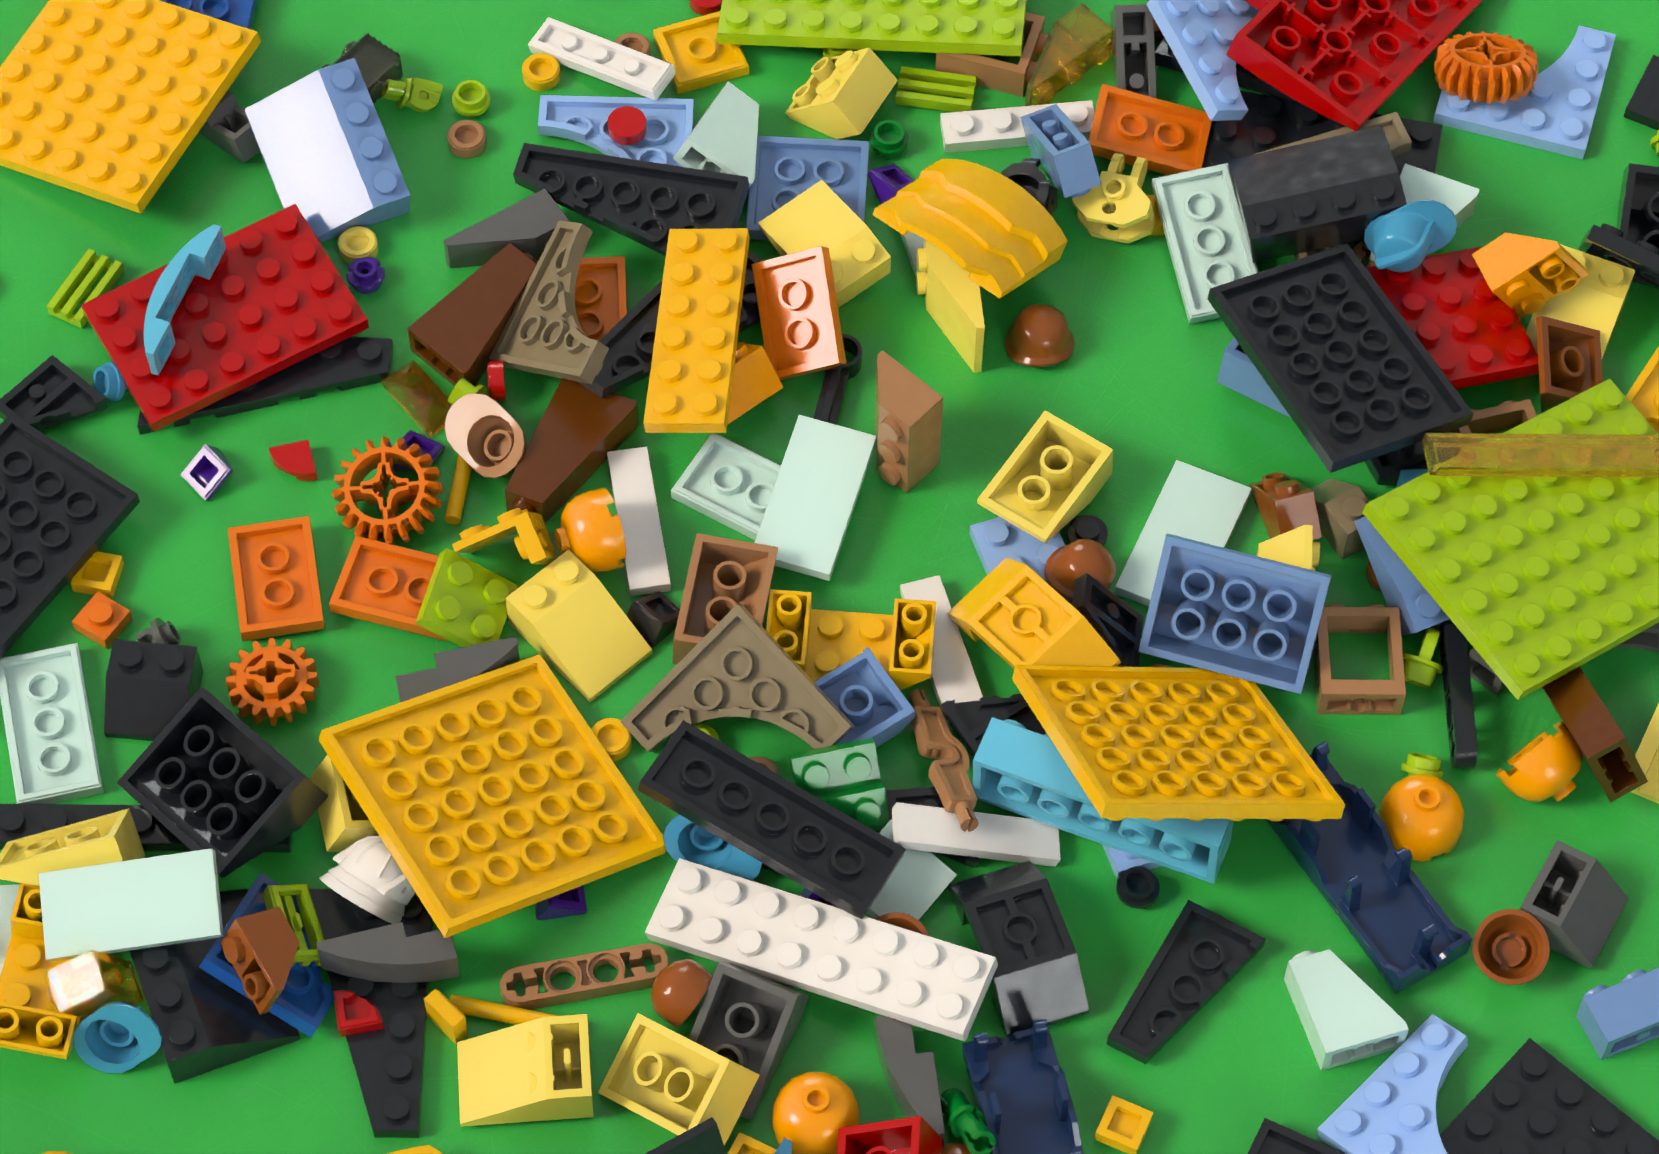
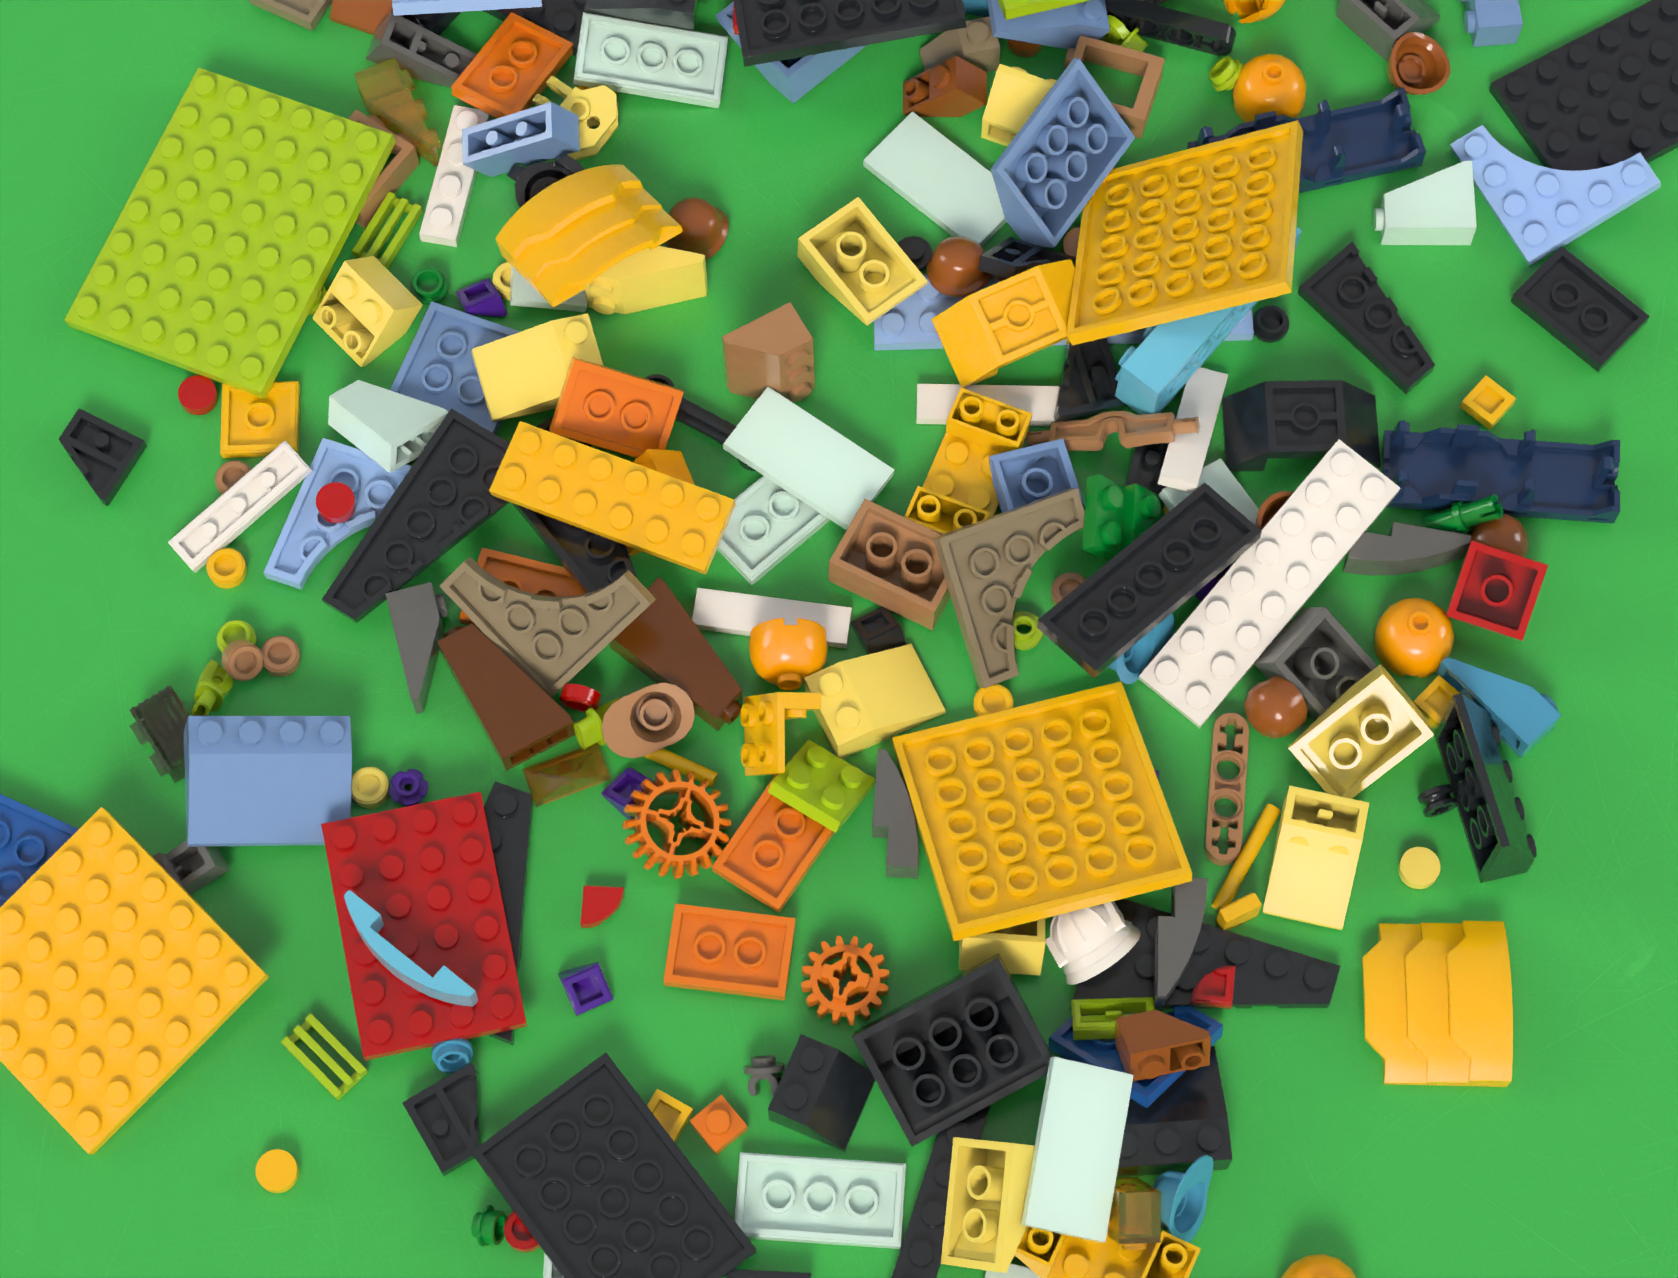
camera: 70 degrees left, 10 degrees up
(447, 106) = (242, 660): none -> medium nougat tile

